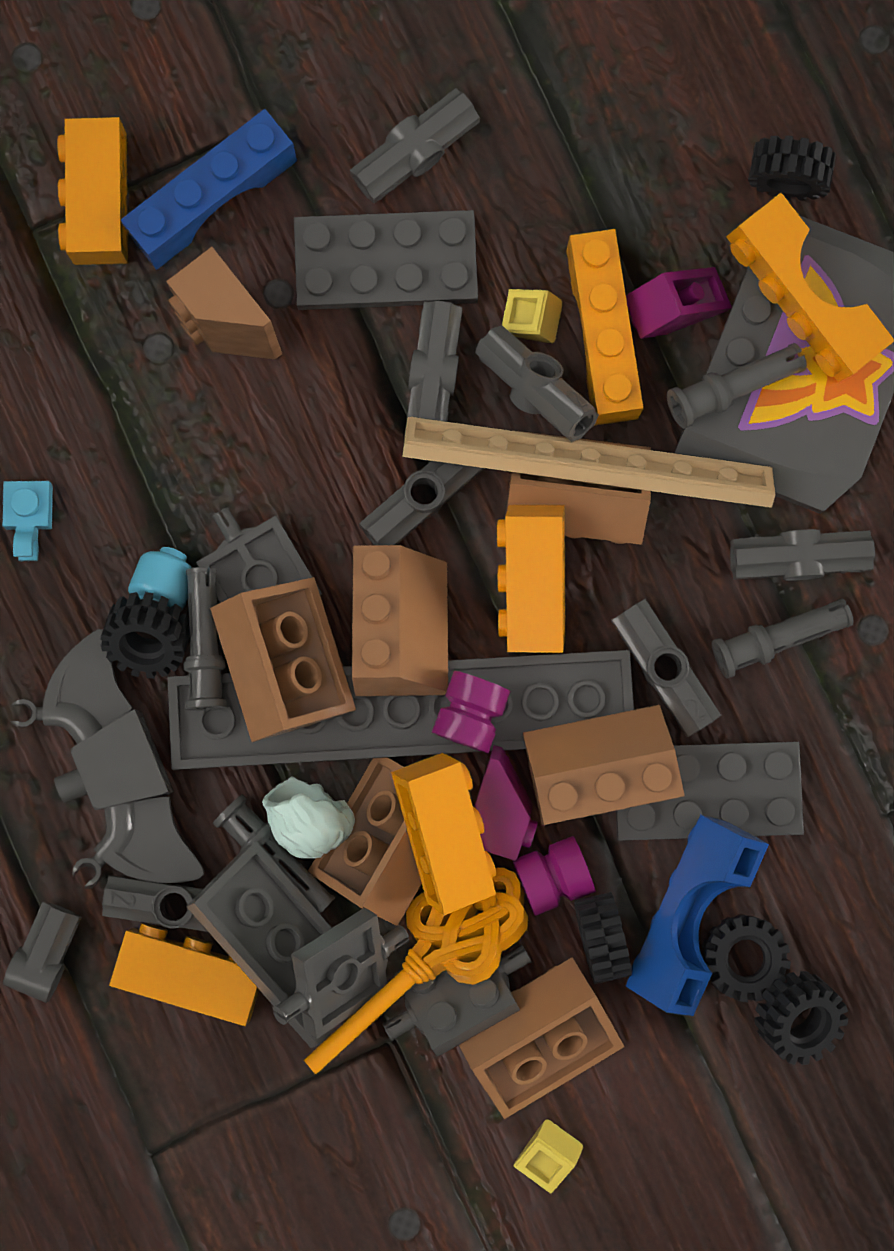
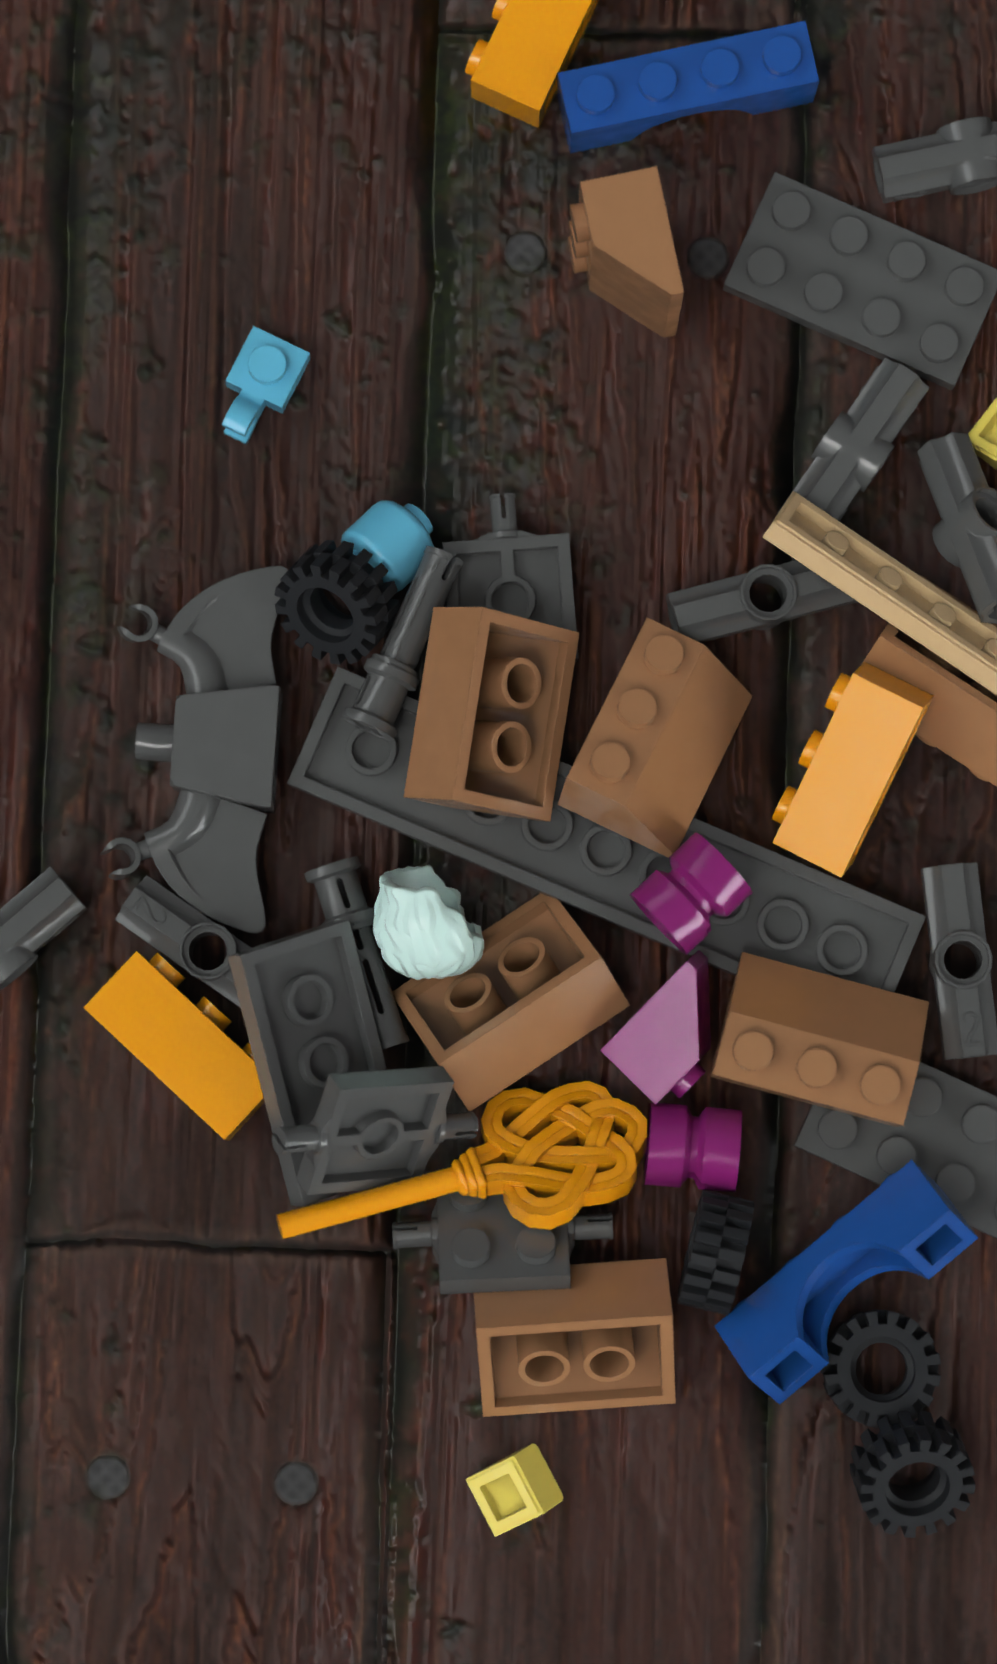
camera: 30 degrees right, 0 degrees up
(445, 832) = (586, 1023): light orange brick -> none

